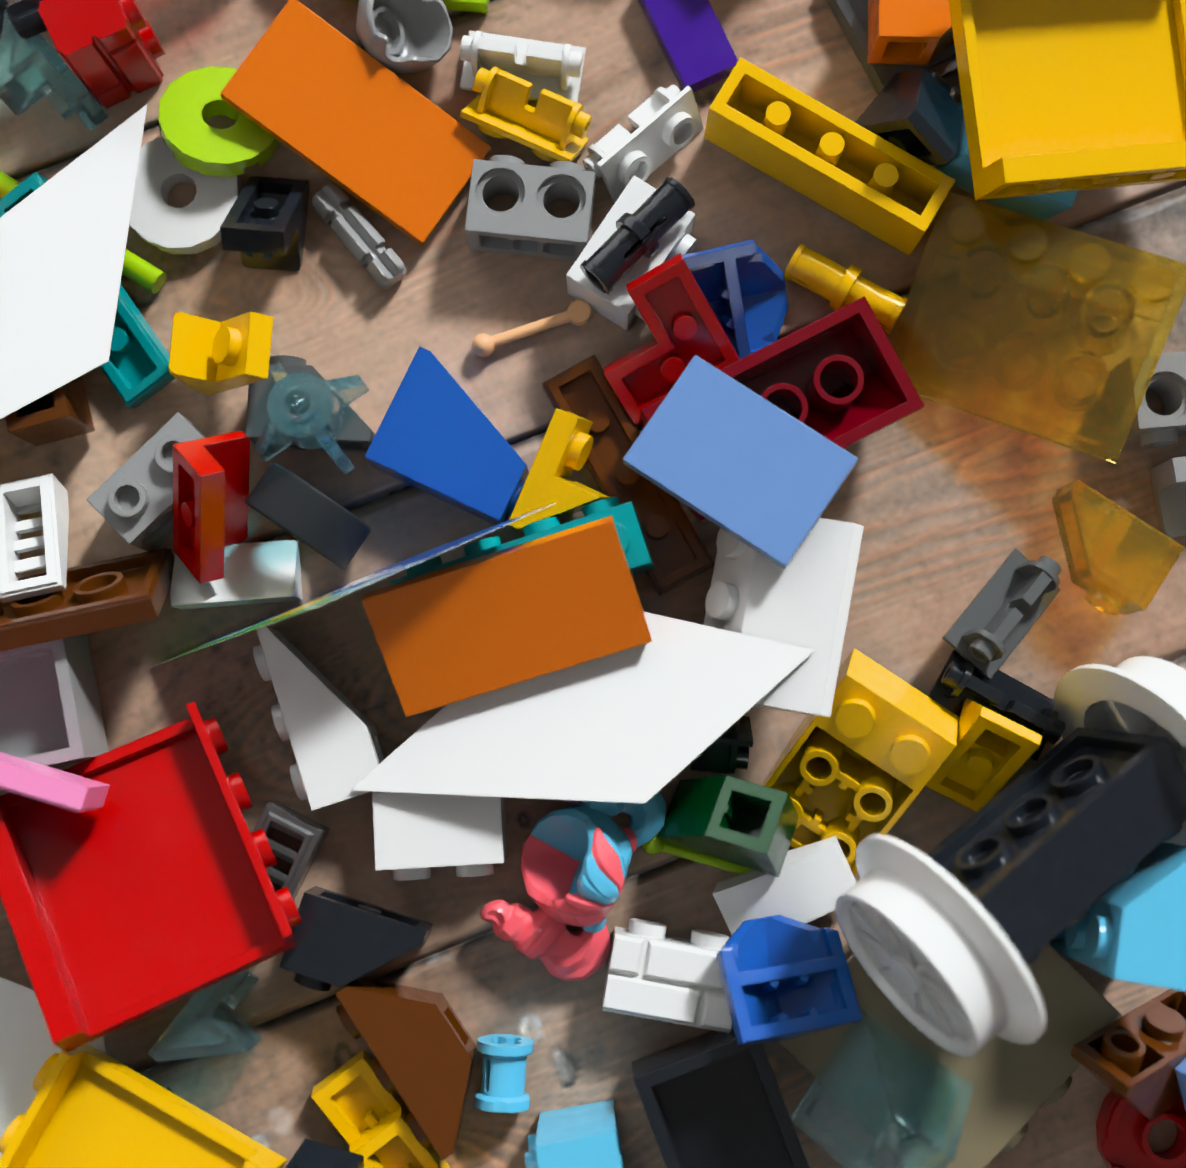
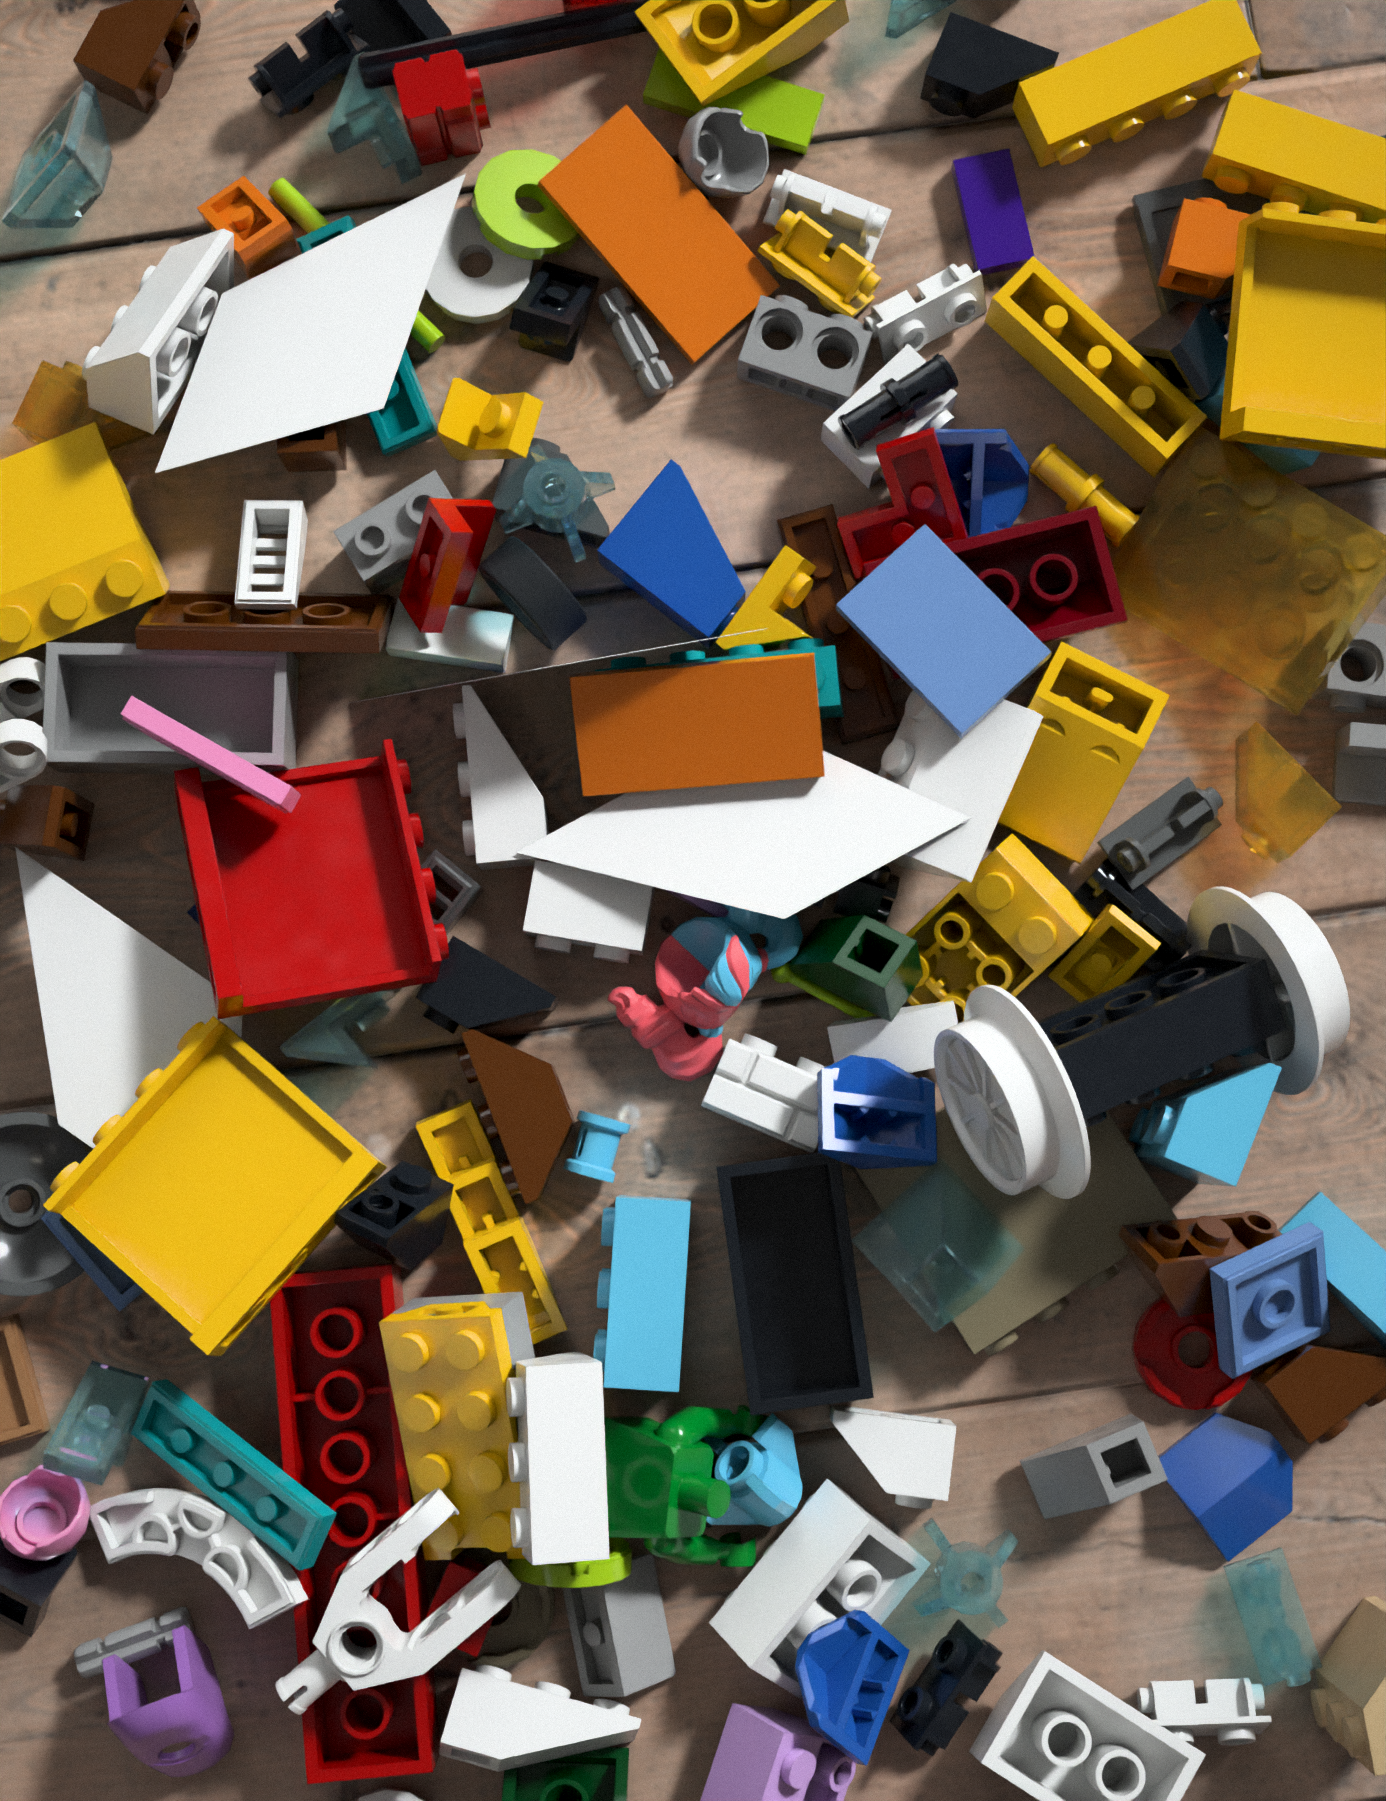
camera: 15 degrees right, 0 degrees up
(577, 313) = (825, 462): light nougat hinge -> none
(911, 548) = (1081, 752): none -> yellow slope

